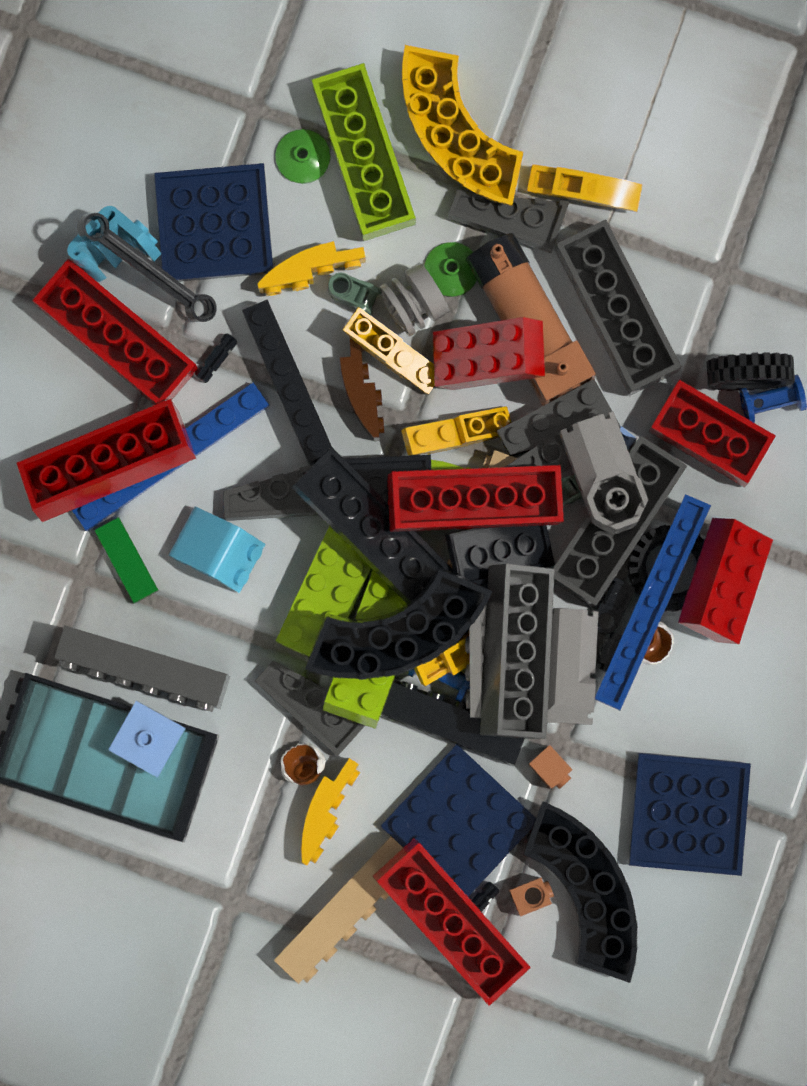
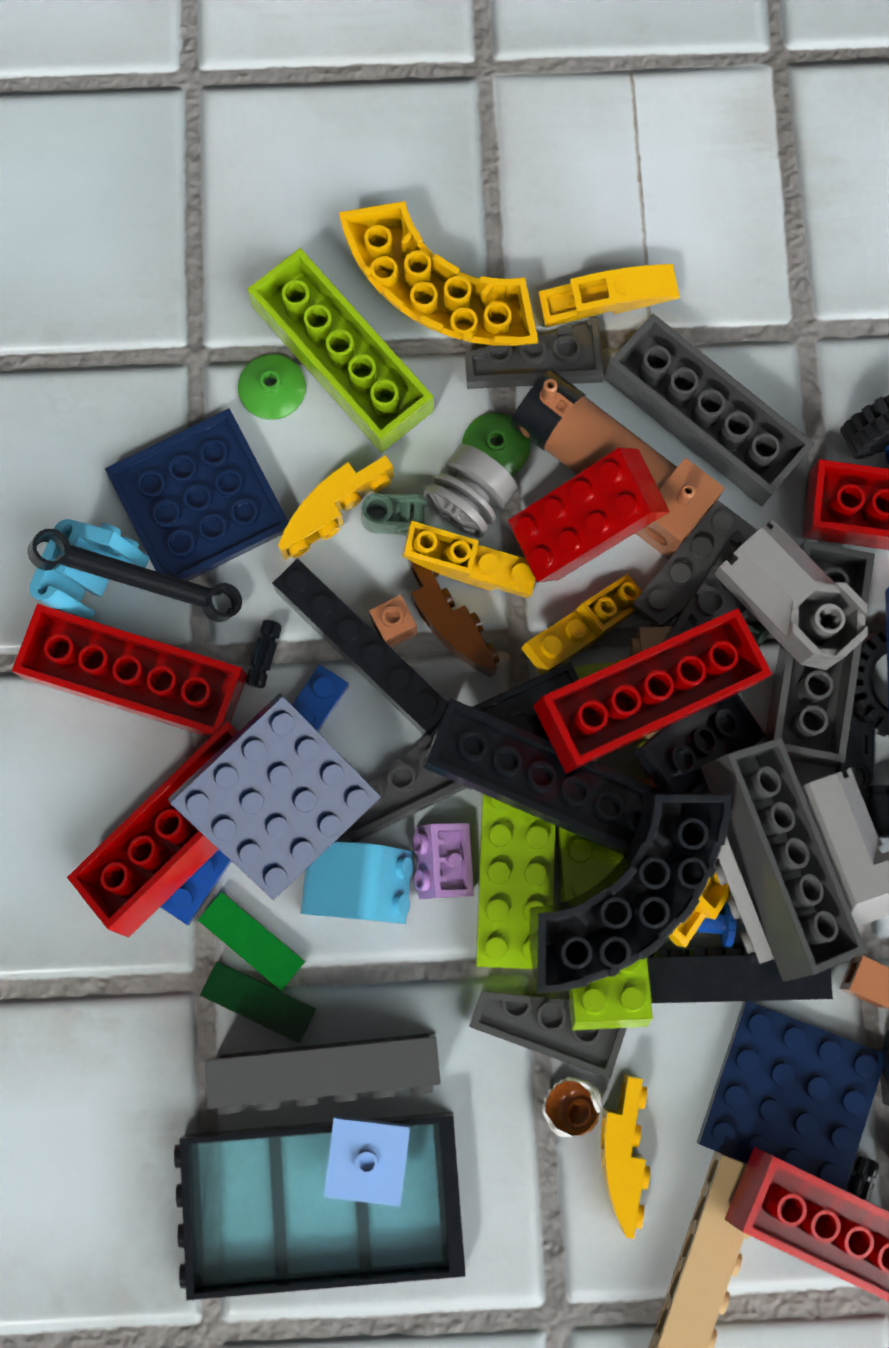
camera: 25 degrees left, 5 degrees down
(114, 604) = (258, 1002): none -> dark green tile
(183, 466) = (274, 797): none -> plate
(284, 559) = (443, 861): none -> lavender bracket
(318, 373) = (393, 621): none -> nougat brick

